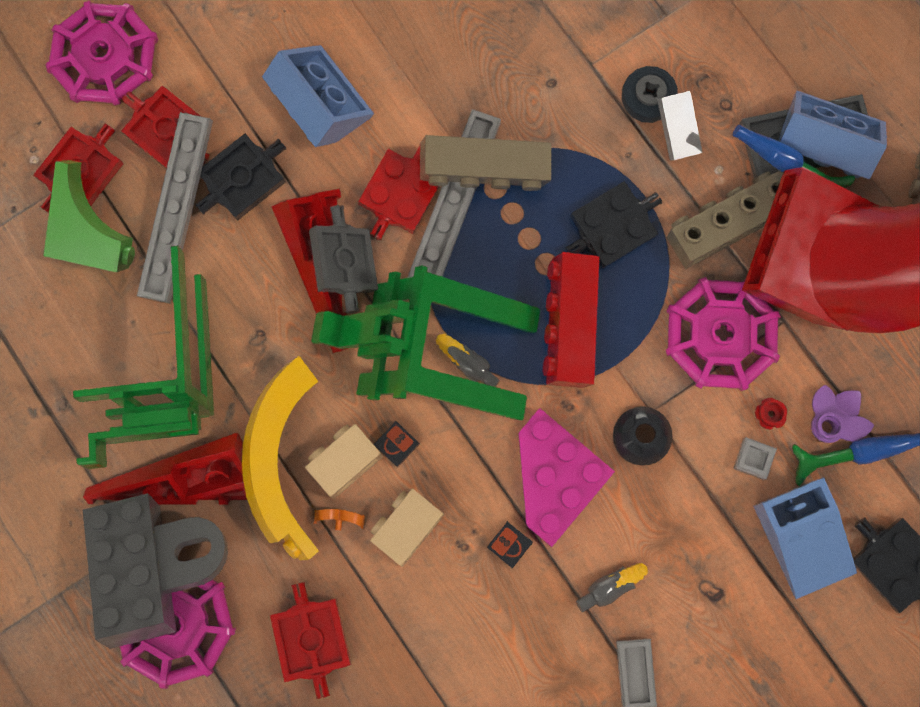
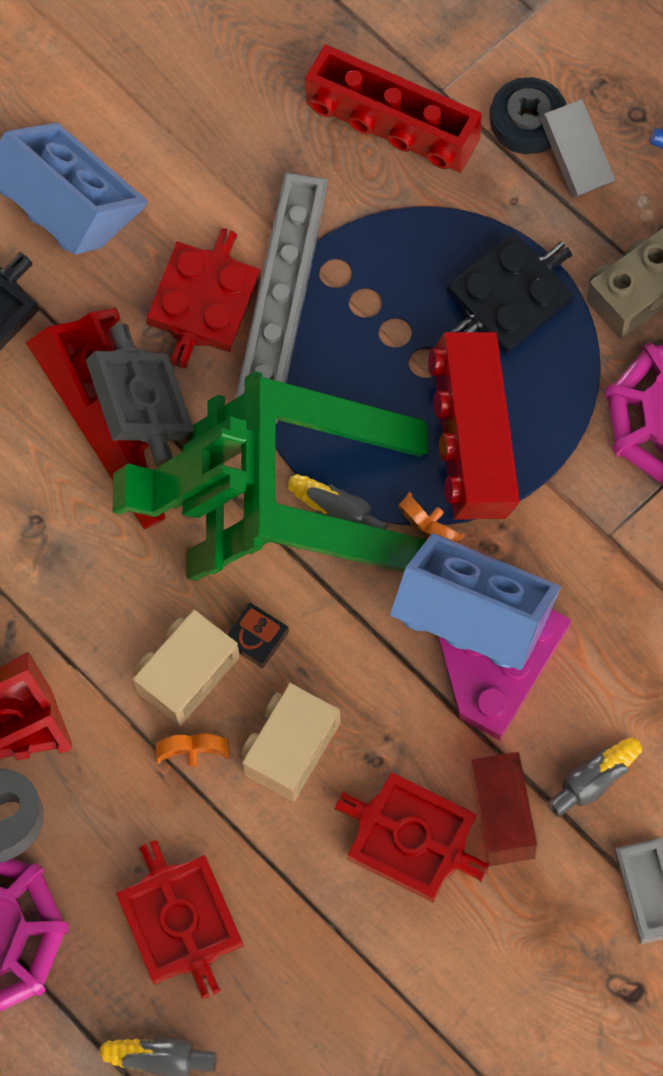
camera: 10 degrees left, 10 degrees down
(261, 458) = (71, 686): yellow arch -> none
(478, 609) = (412, 837): none -> red plate
(485, 162) = (316, 234): dark tan brick -> none
(509, 544) = (440, 745): tile -> none
(528, 384) = (426, 524): none -> orange piece
(544, 603) = (503, 809): none -> clear red brick
(551, 451) = (474, 601): none -> medium blue slope
(554, 75) = (392, 109): none -> red brick
(630, 447) = (601, 588): black piece -> none

